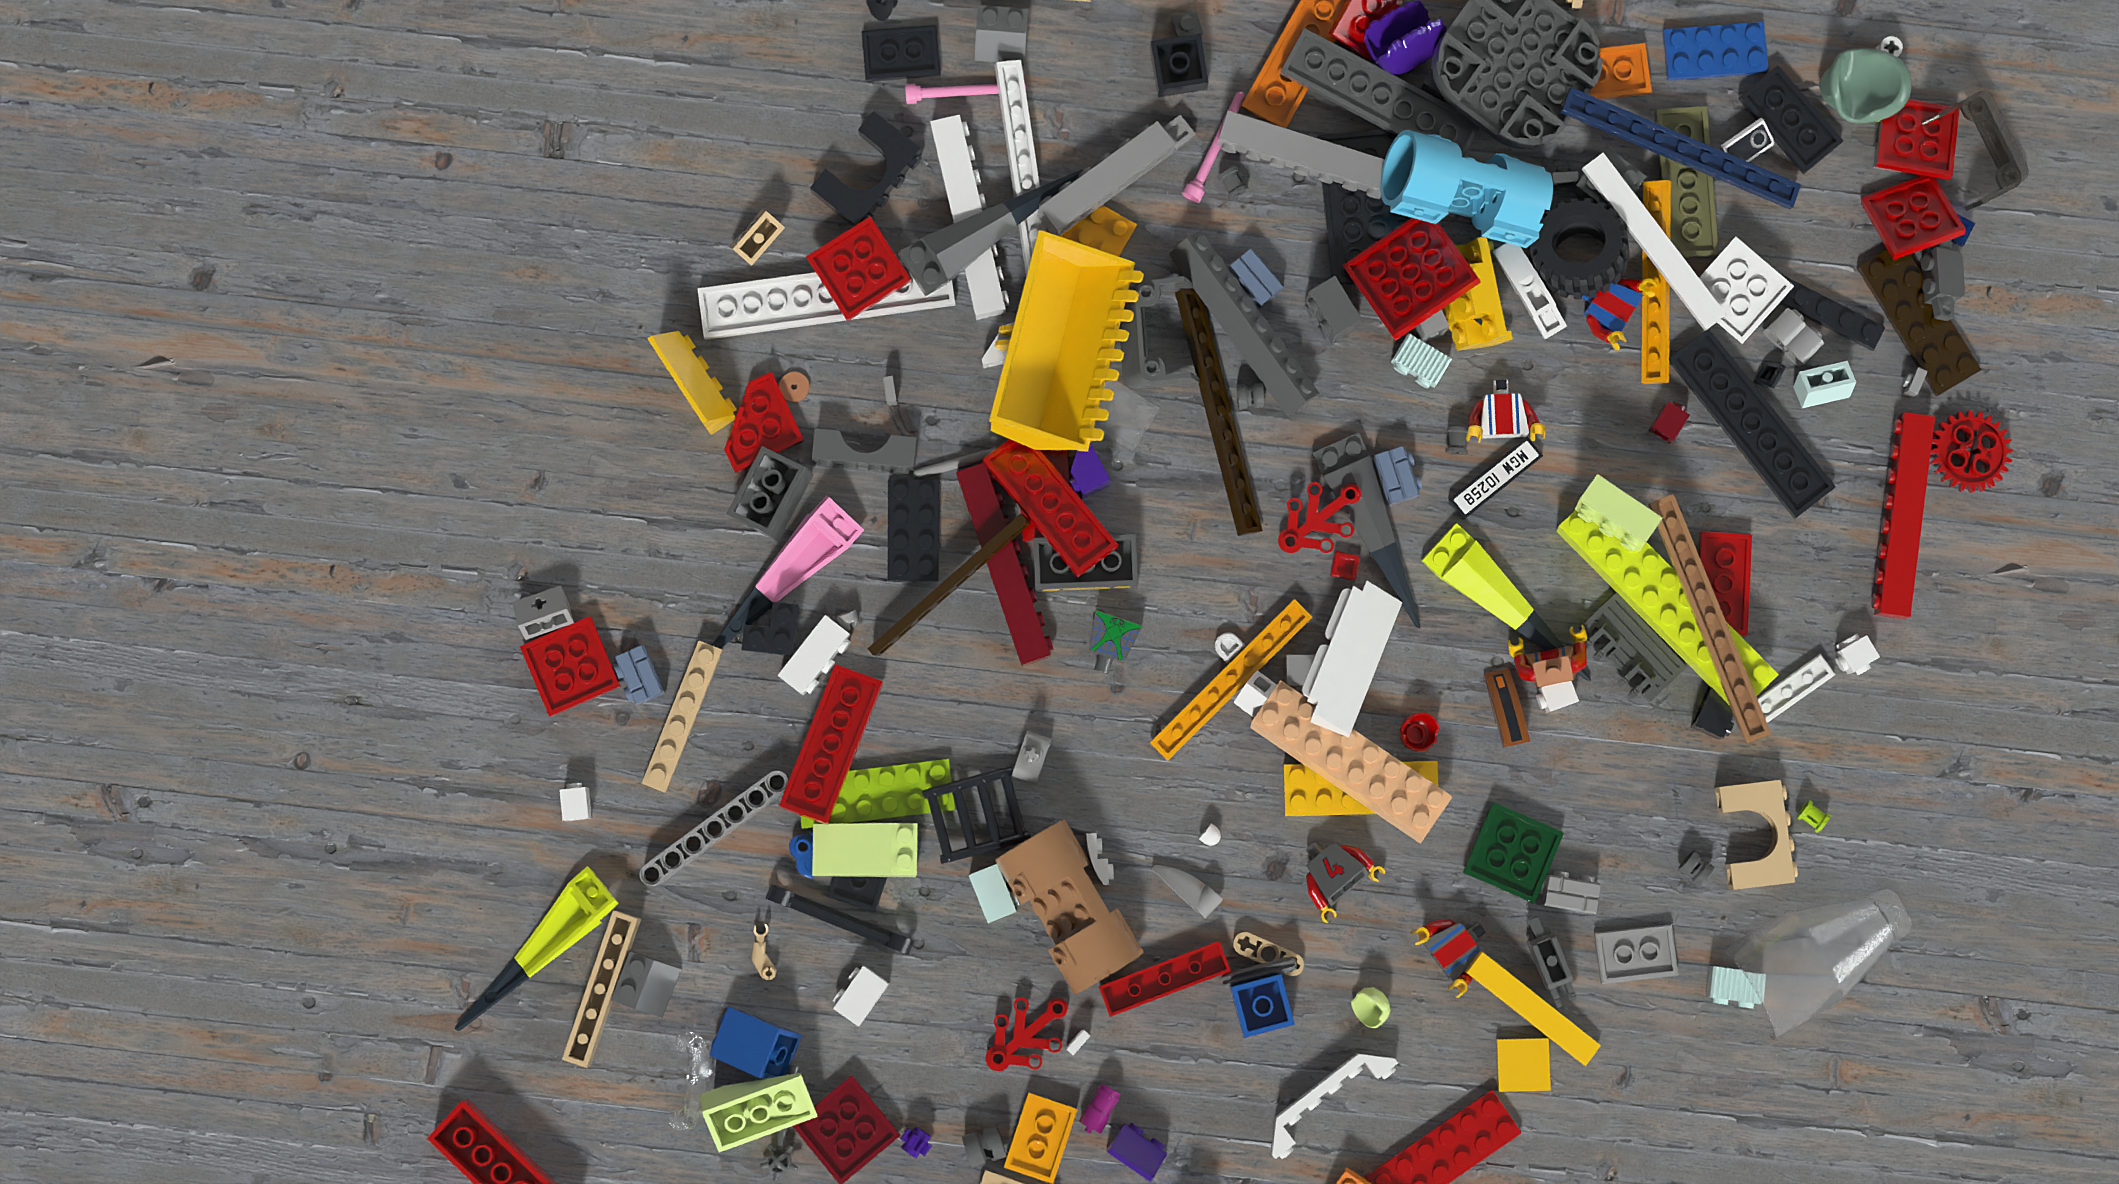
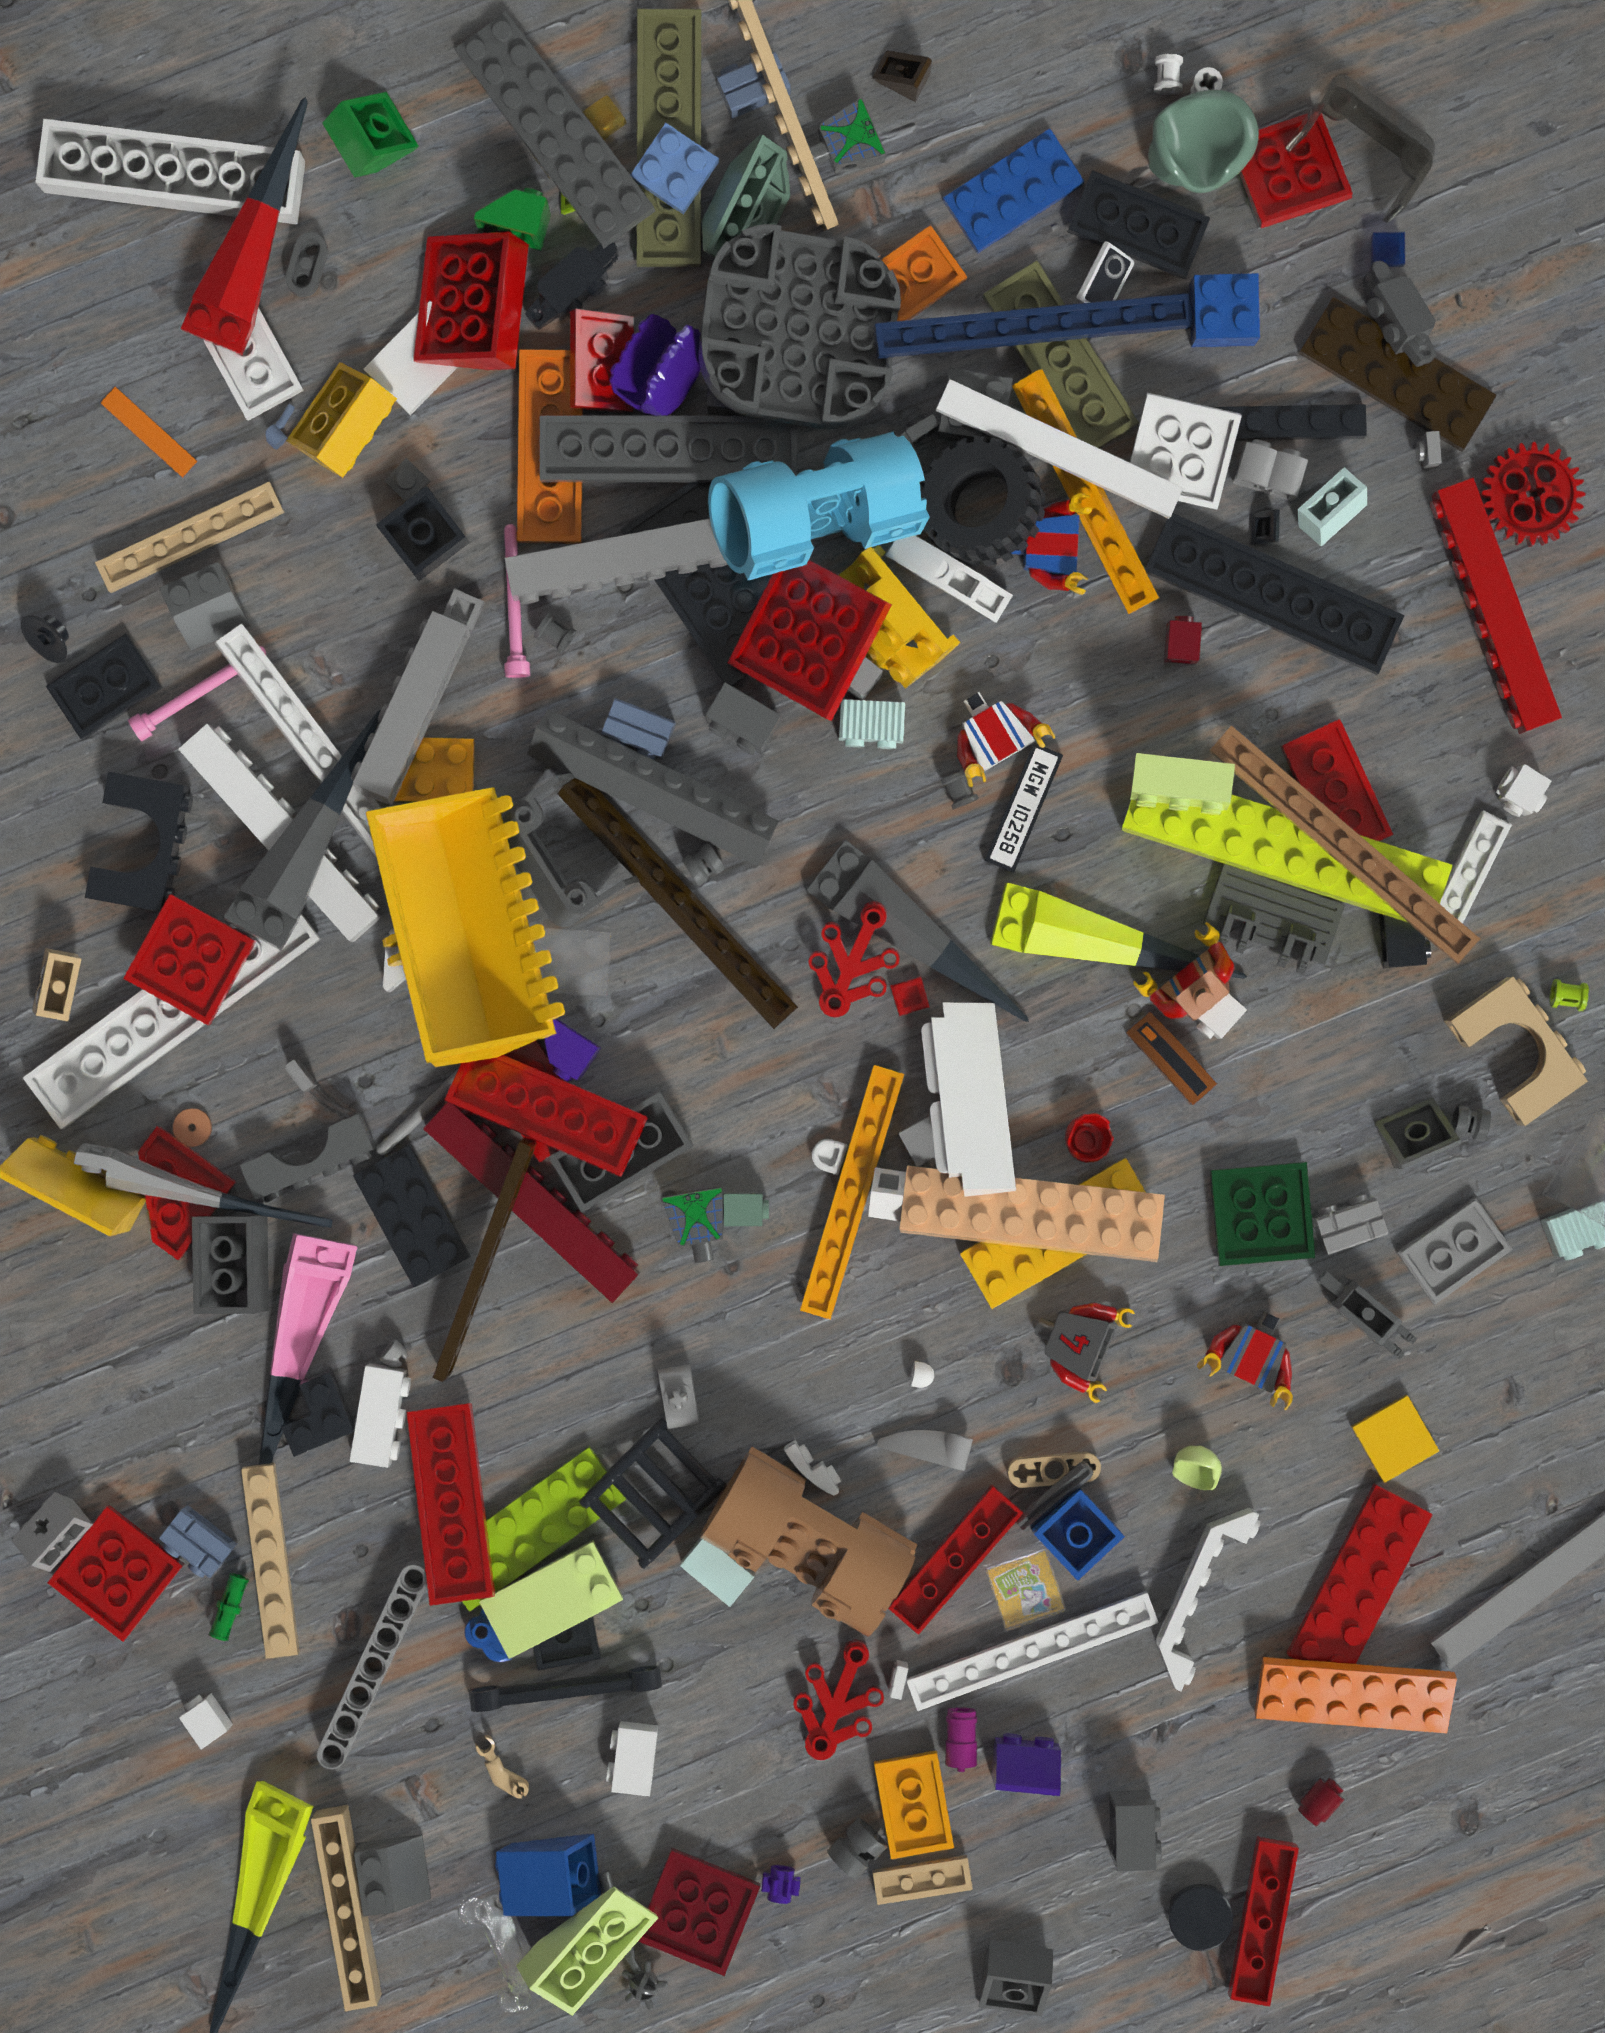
camera: 25 degrees left, 5 degrees up
(635, 733) = (228, 1607): none -> green pin
(739, 397) = (139, 1177): none -> light grey plate
(1149, 651) = (745, 1209): none -> sand green brick
(1184, 1074) = (1032, 1650): none -> white plate
(1202, 1029) = (1025, 1589): none -> clear tile
(1397, 475) = (914, 865): sand blue brick -> none
(1532, 1008) = (1373, 1374): yellow tile -> none
(1652, 855) = (1416, 1134): none -> dark grey slope
(1820, 209) = (1225, 310): none -> blue brick
(1866, 28) = (1168, 74): none -> white bush
(1912, 216) = (1332, 262): red plate -> none

